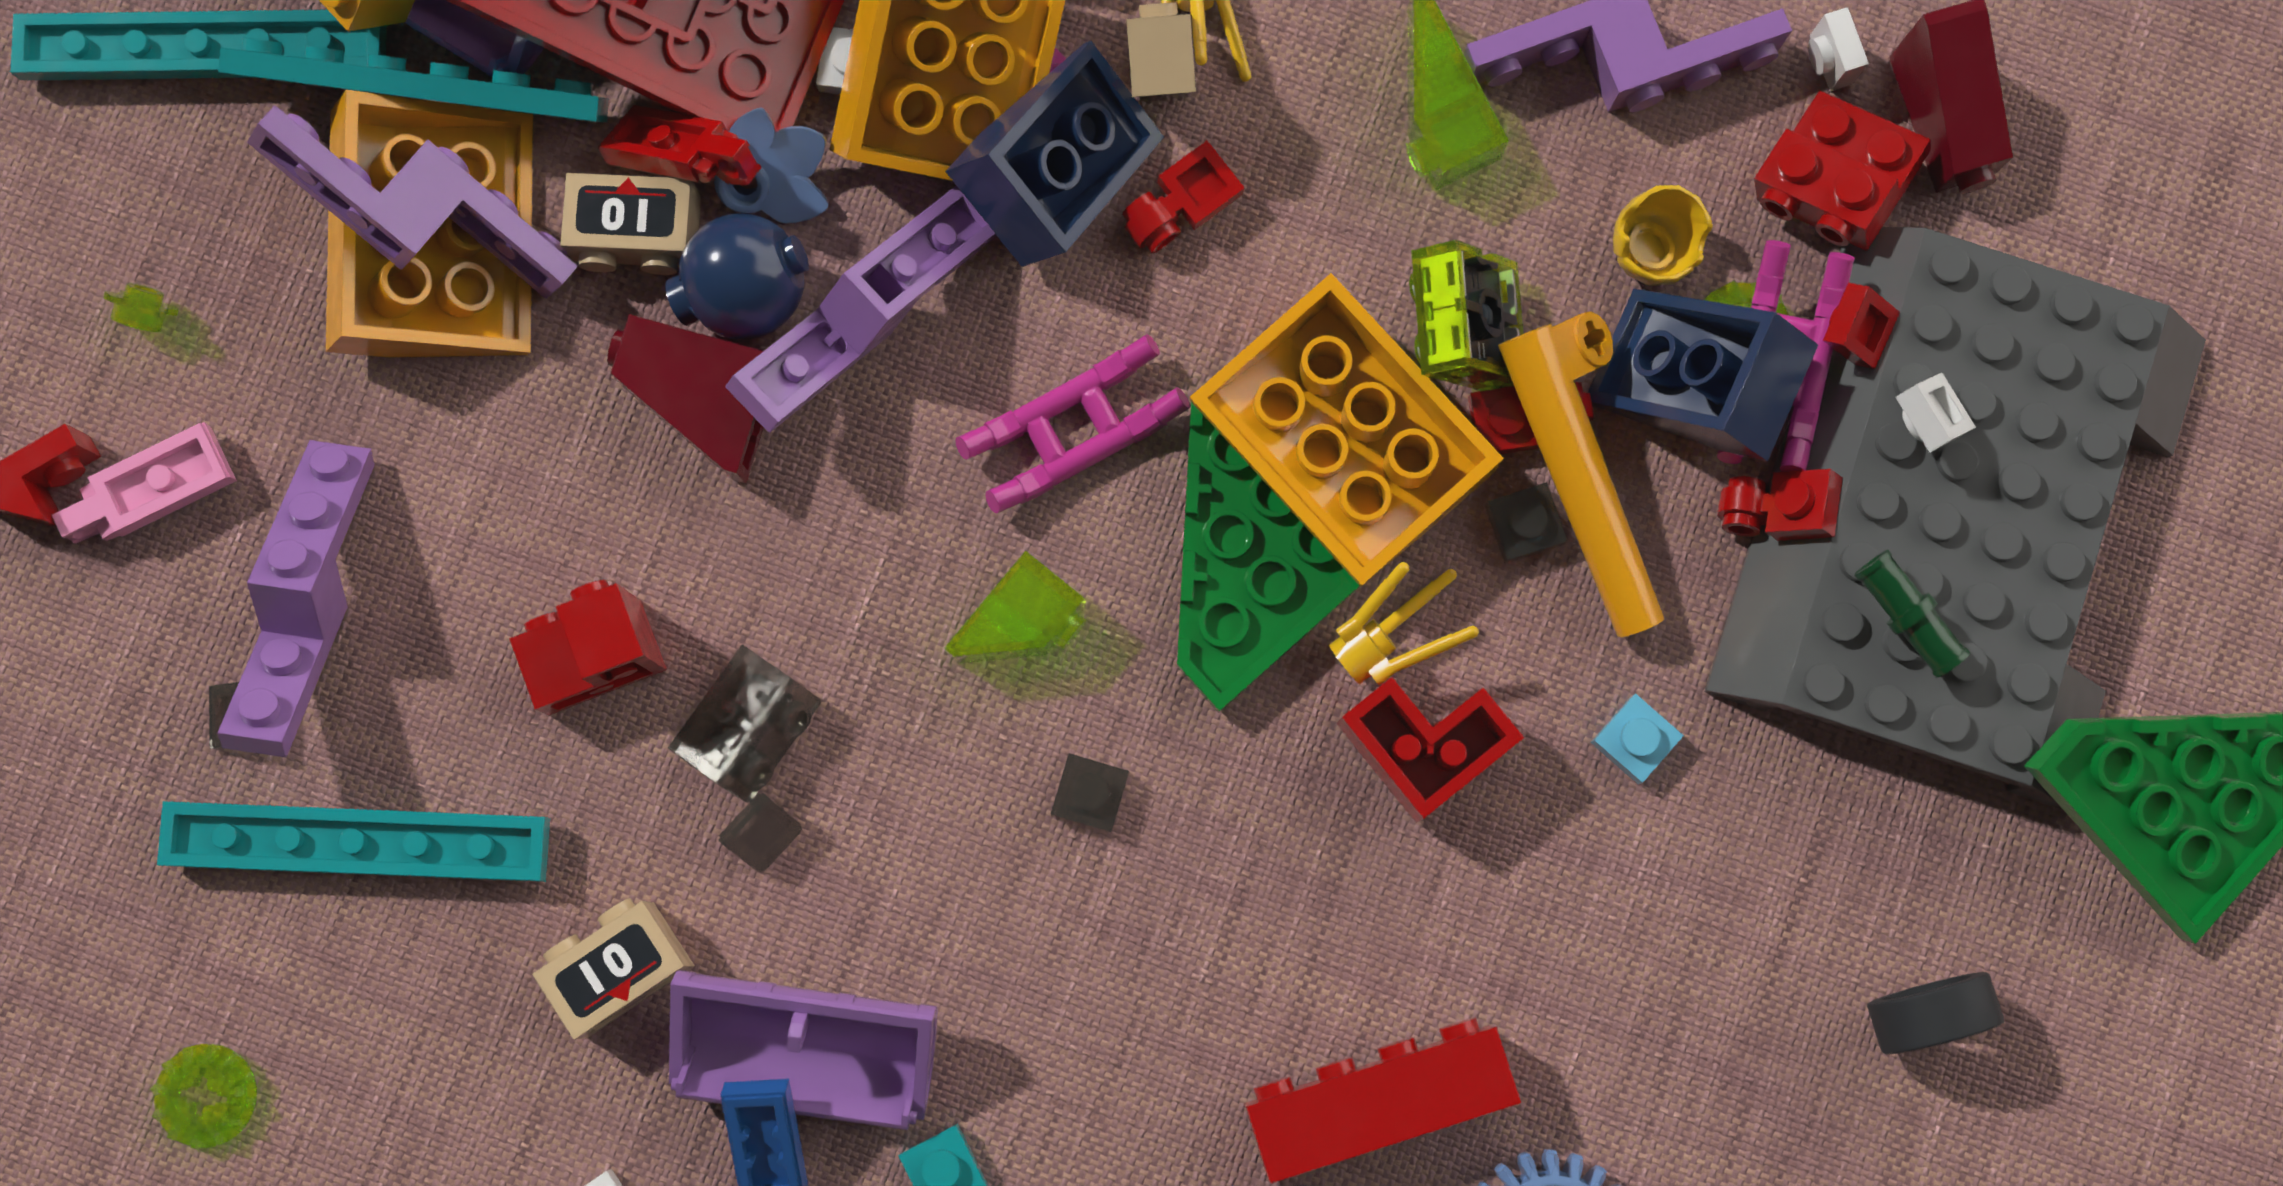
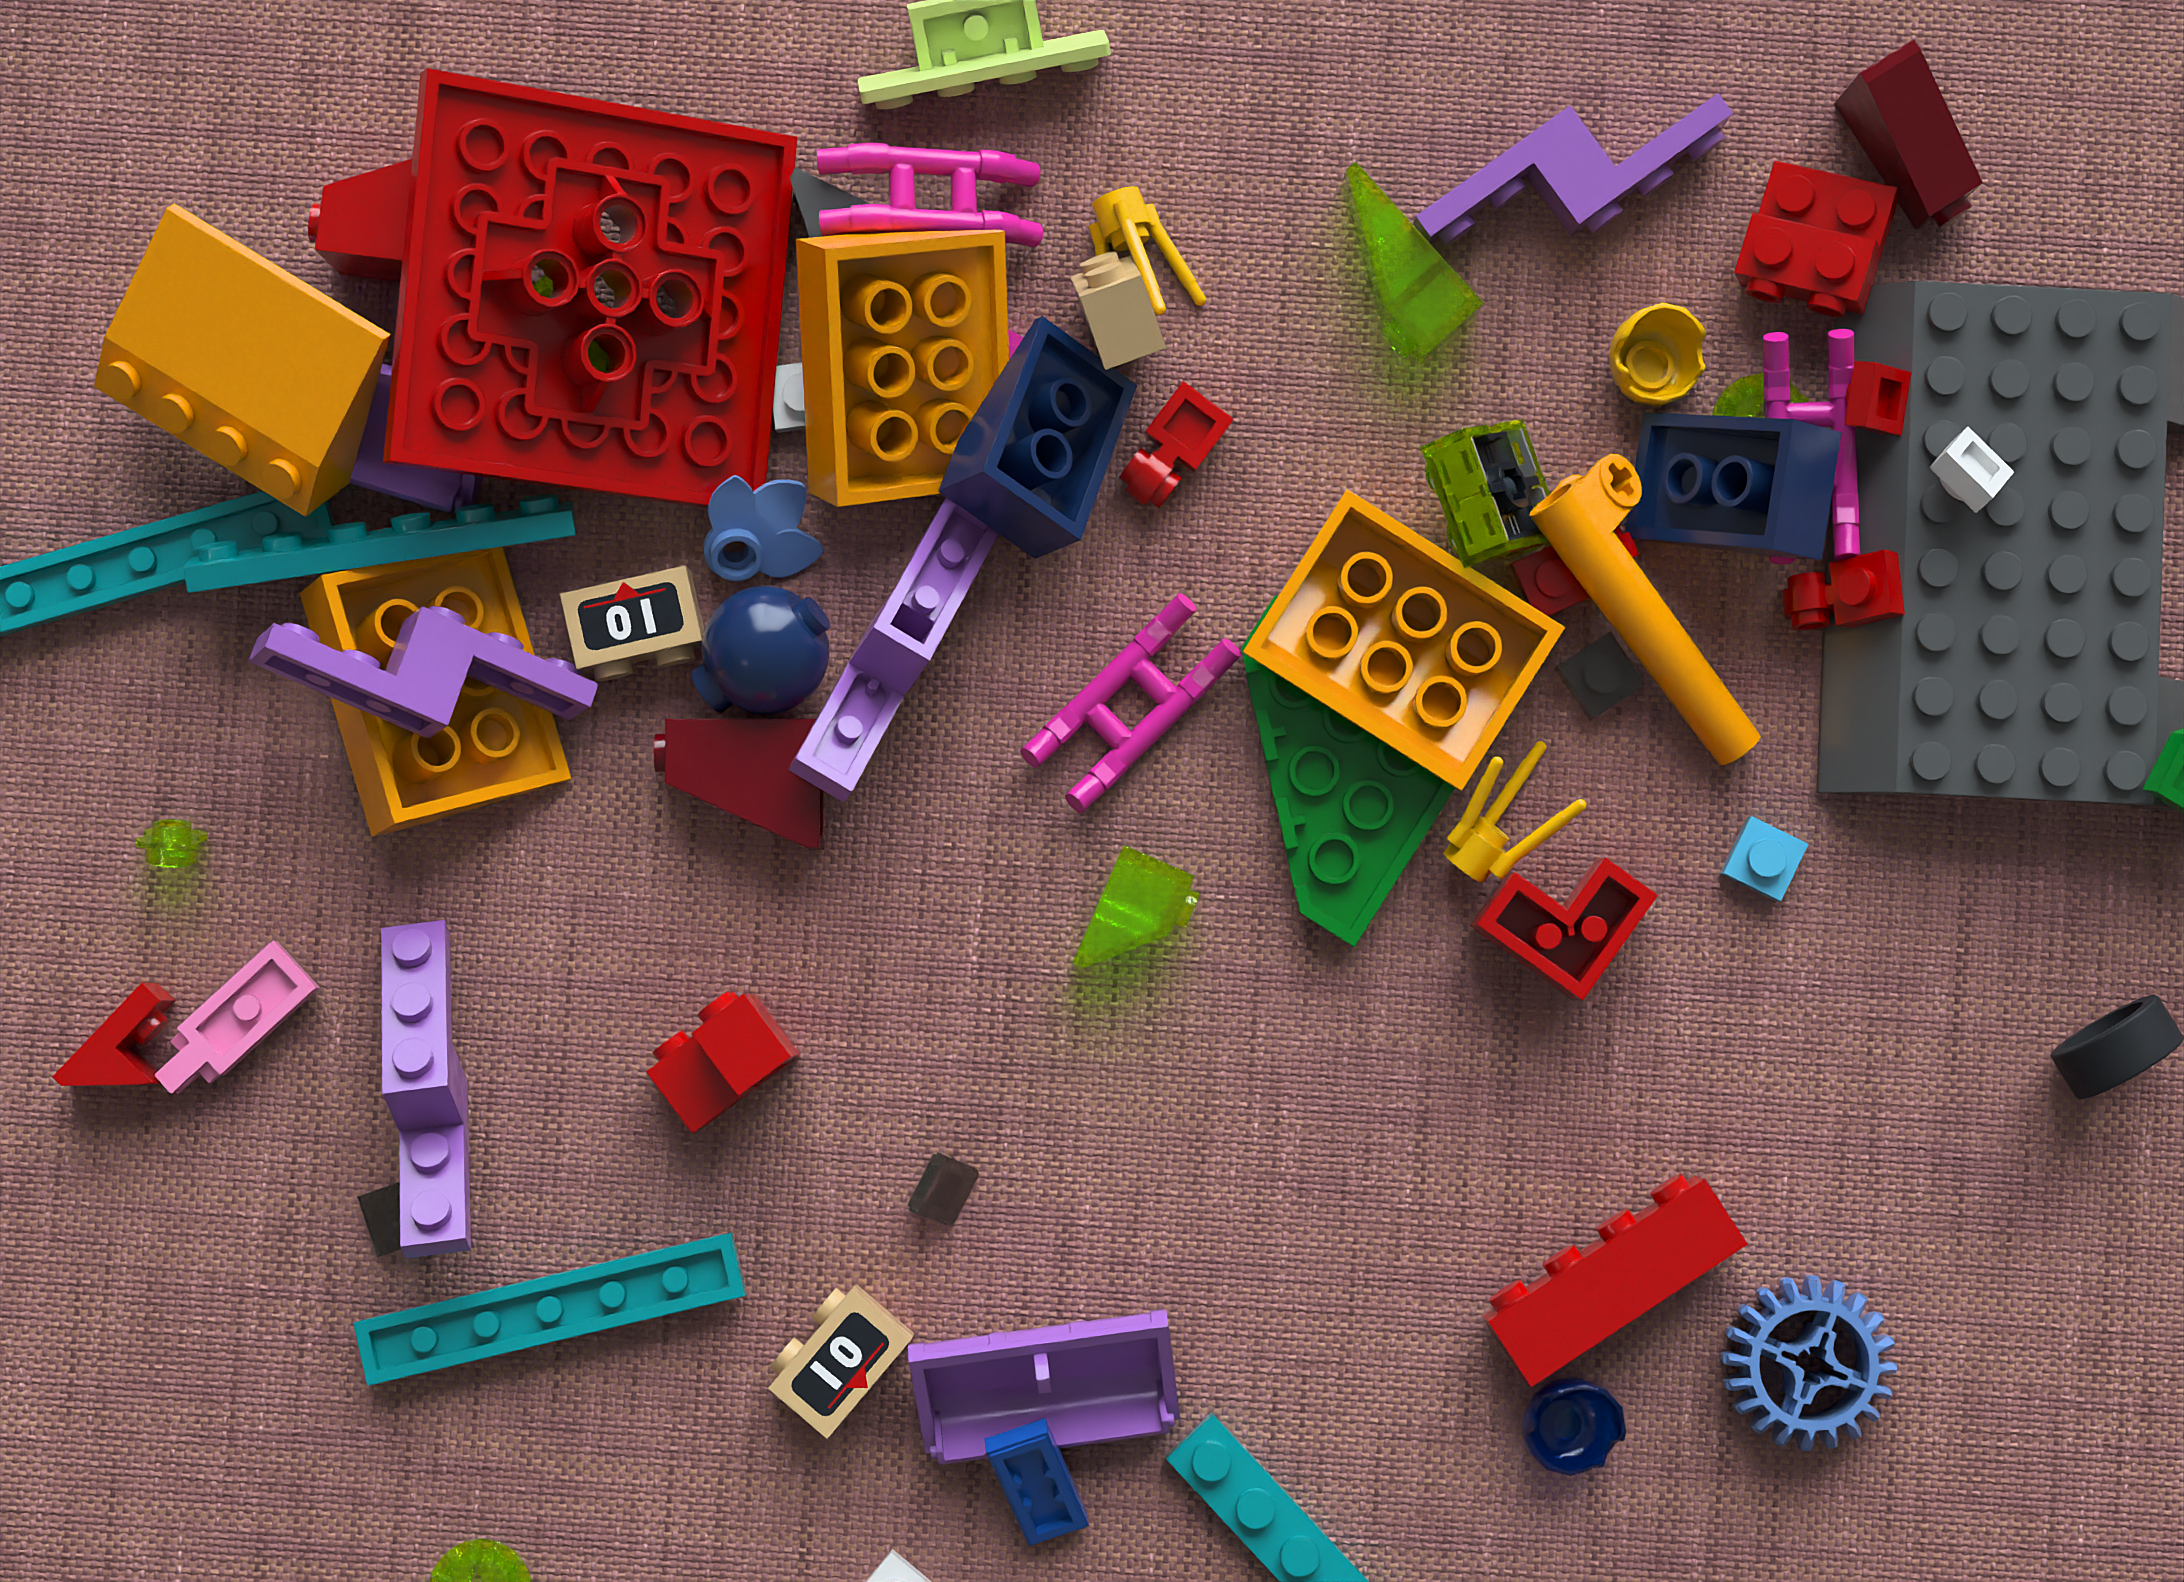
camera: 20 degrees left, 5 degrees up
(679, 147) = (662, 536): red hinge -> none
(745, 724) = (896, 1088): clear smoke bracket -> none
(1090, 793) = (1250, 1060): clear smoke plate -> none
(1837, 50) = (1781, 115): white plate -> none
(1912, 613) = (1998, 673): dark green pin -> none

